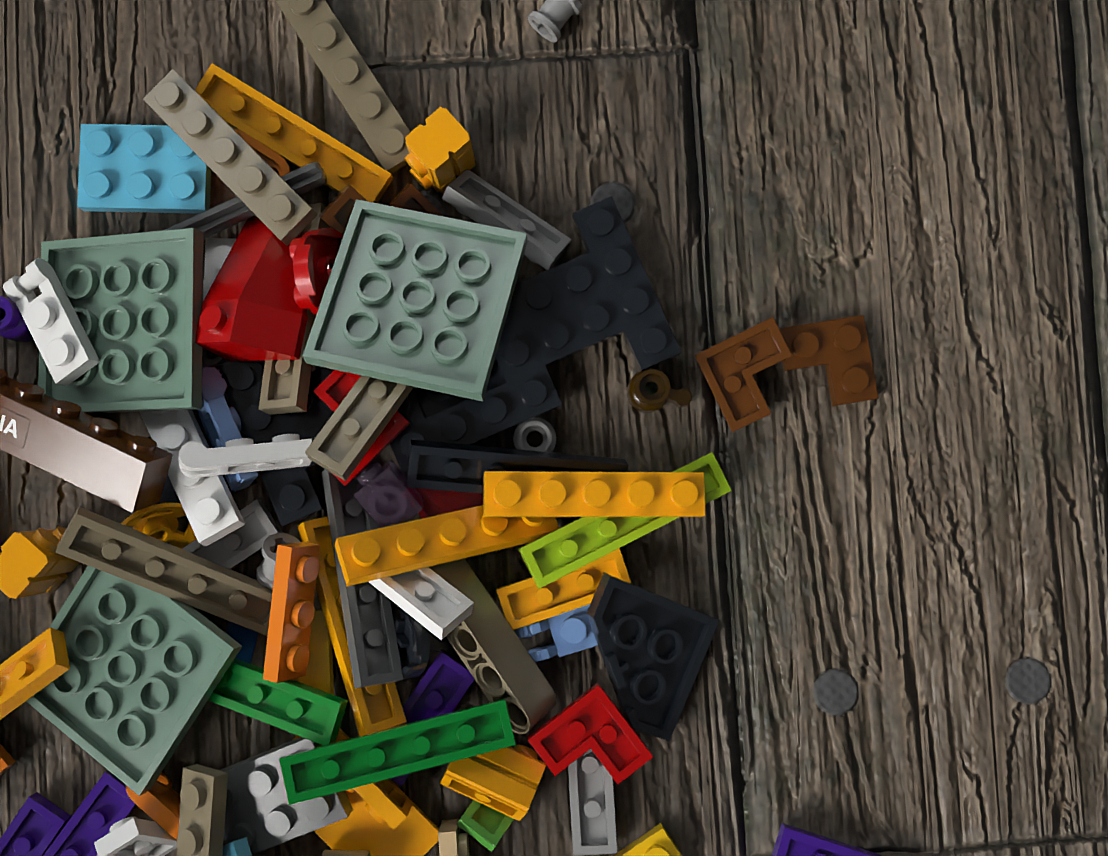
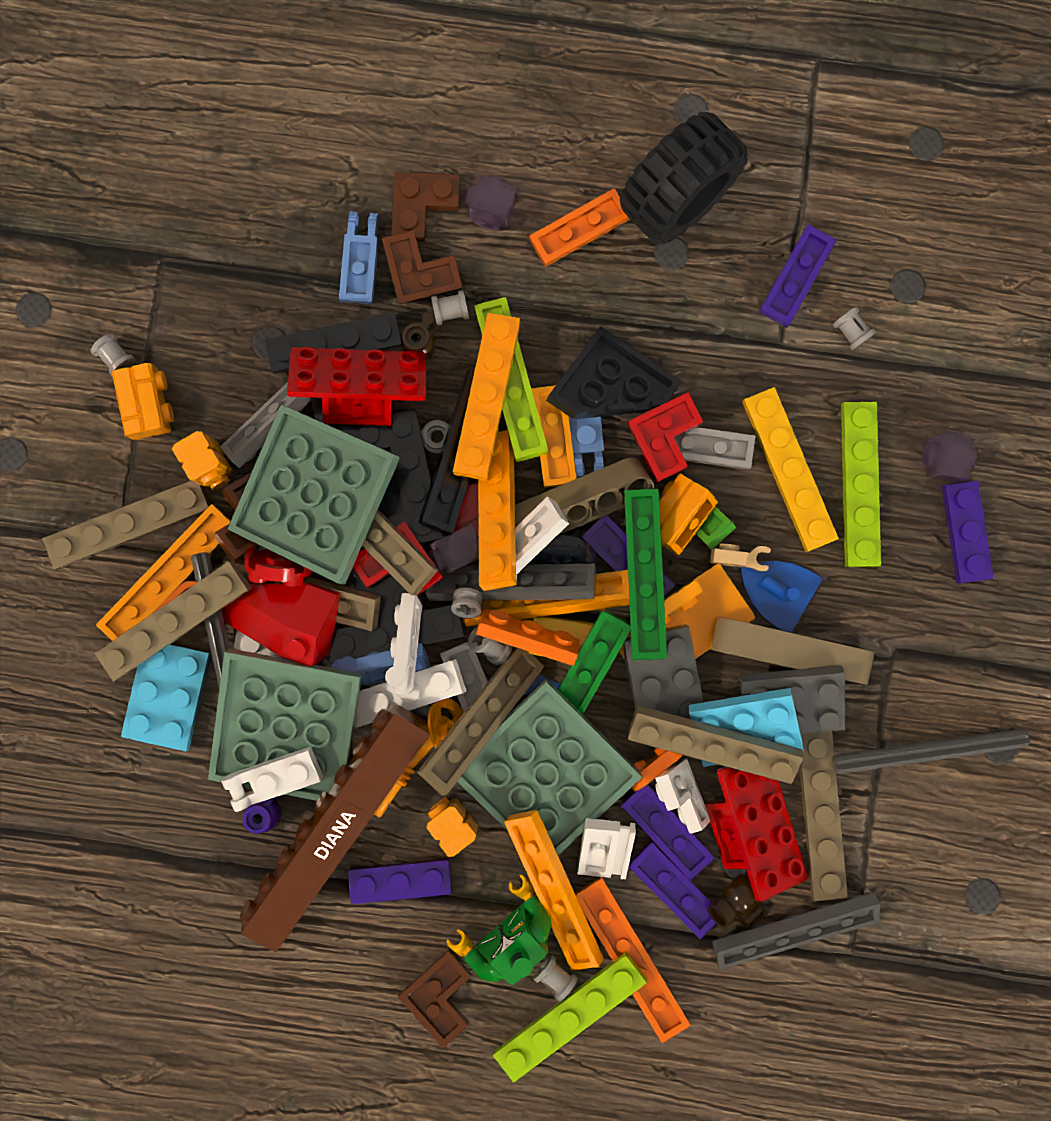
camera: 75 degrees left, 0 degrees up
(45, 764) = (605, 848): none -> white plate
(322, 522) = (467, 602): none -> light grey bush
(504, 61) = (142, 401): none -> light orange brick
(576, 323) = (357, 383): none -> red bracket
(703, 421) = (450, 307): none -> light grey bush
(738, 294) = (359, 261): none -> medium blue hinge
(843, 568) = (578, 228): none -> orange plate
(851, 446) = (491, 202): none -> brick
(936, 699) = (683, 177): none -> black tyre

